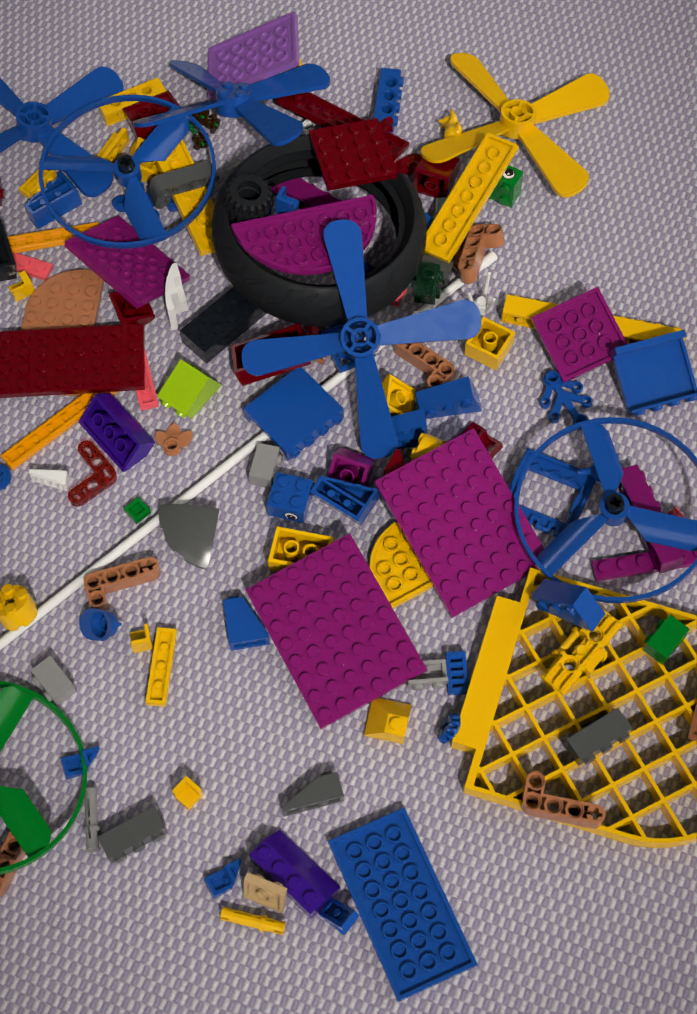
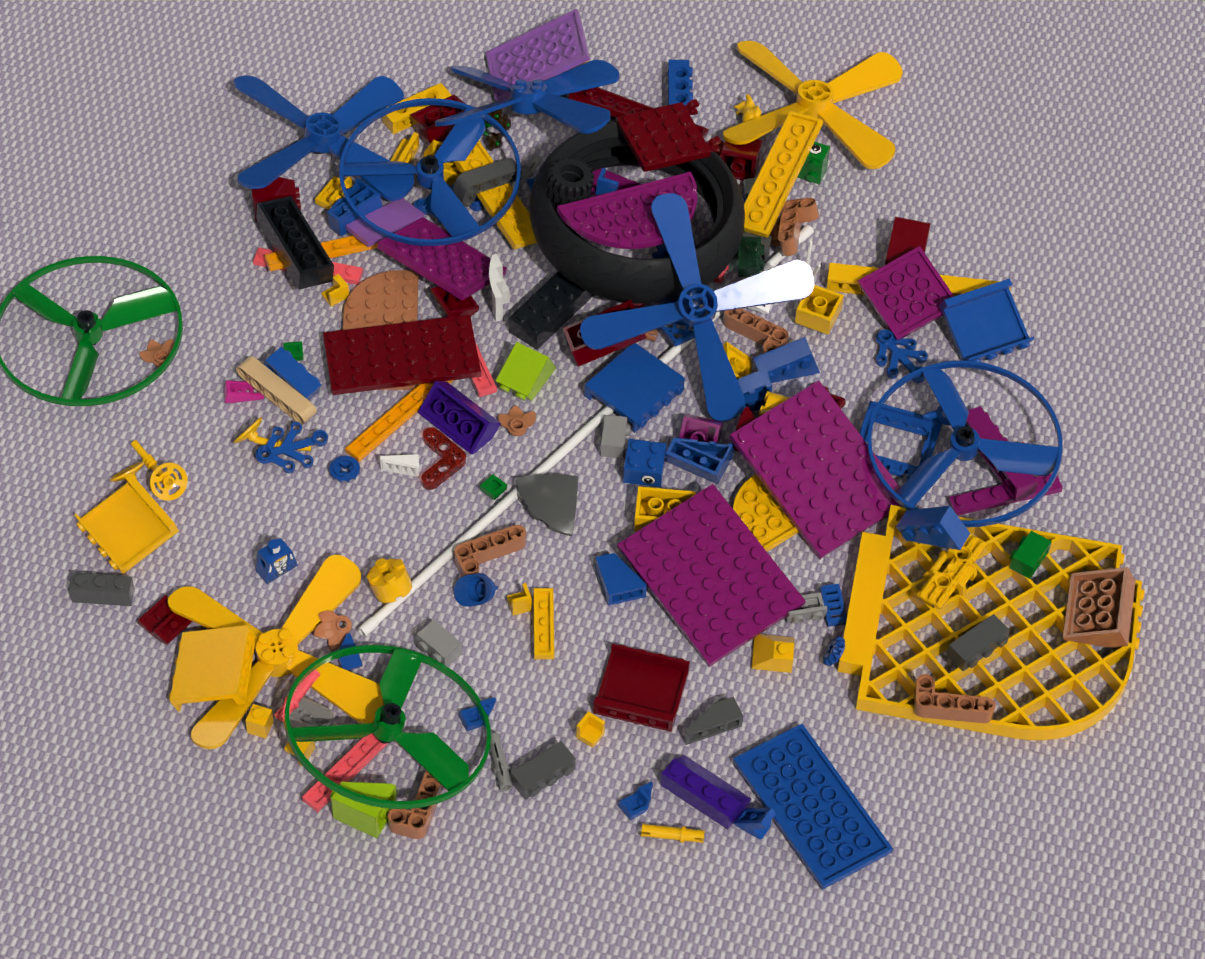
camera: 10 degrees left, 10 degrees down
(81, 217) = (389, 217): none -> medium lavender tile
(248, 749) = (642, 687): none -> dark red panel
(265, 892) = (682, 804): tan plate -> none
(586, 275) = (906, 236): none -> dark red slope

